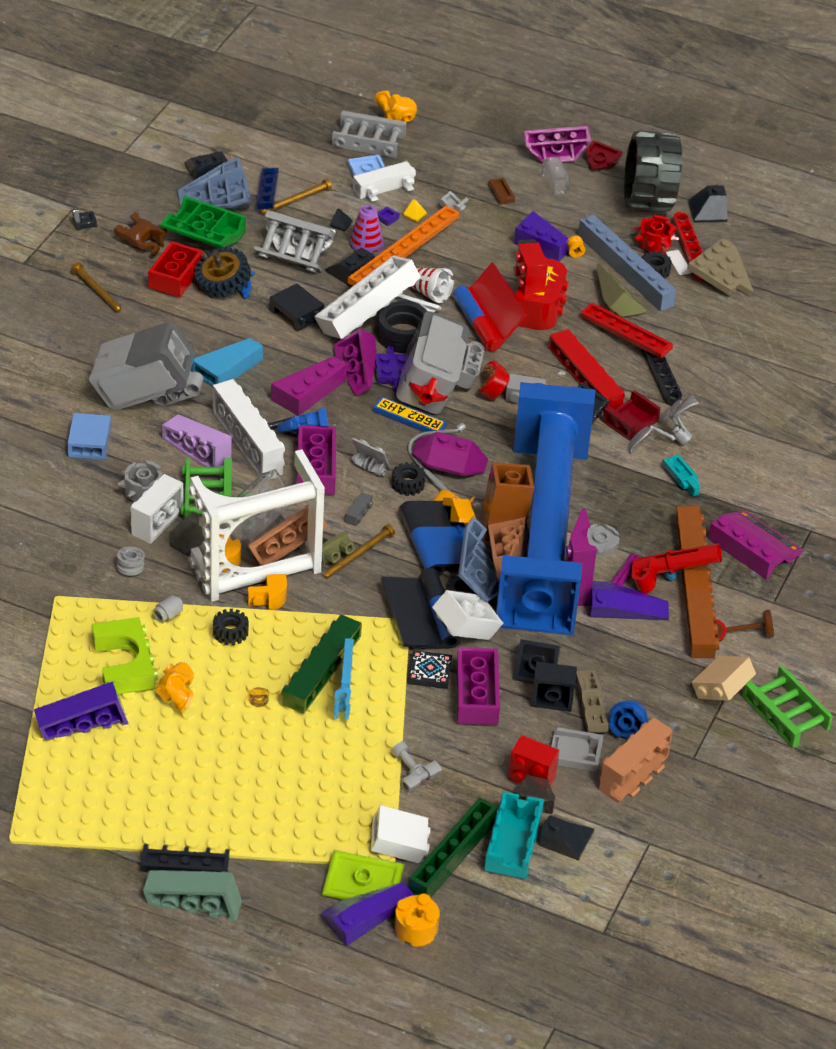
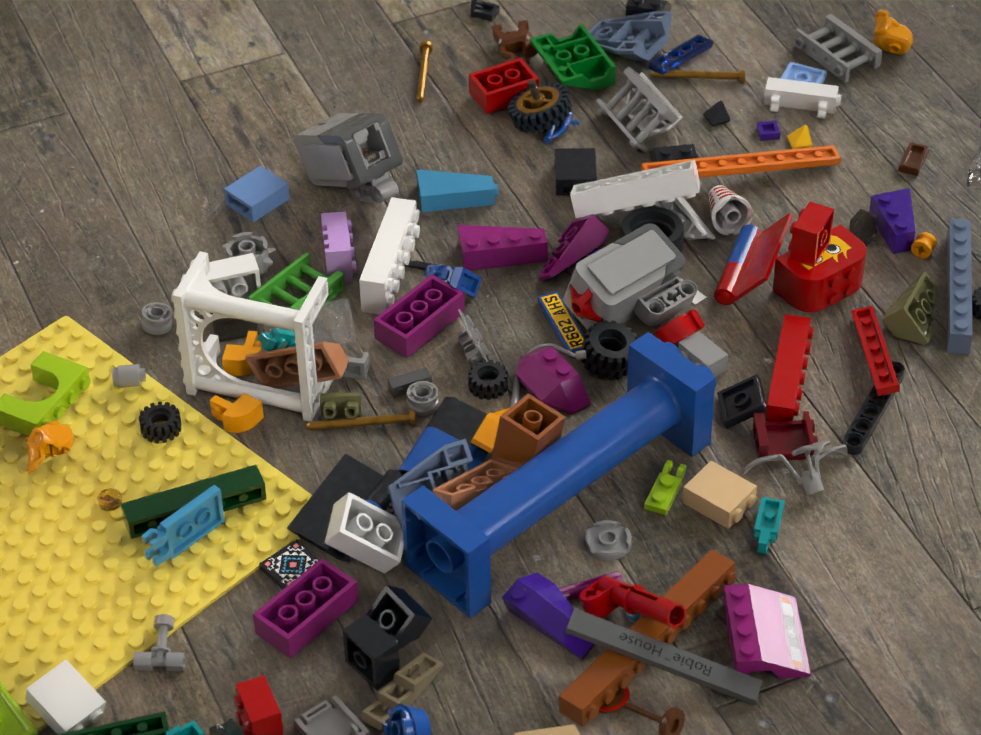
camera: 45 degrees right, 0 degrees up
(264, 523) = (277, 339): none -> teal hinge
(367, 230) = (721, 132): medium lavender cone -> none
(382, 513) = (423, 398): none -> light grey wheel
(453, 202) = (845, 146): light grey bracket -> none
(472, 412) = (603, 337): none -> black tyre
(582, 552) = (527, 536): magenta piece -> none
(597, 487) = (665, 489): none -> lime hinge
(637, 472) = (720, 494): none -> tan brick
(724, 585) = (664, 656): none -> dark grey tile

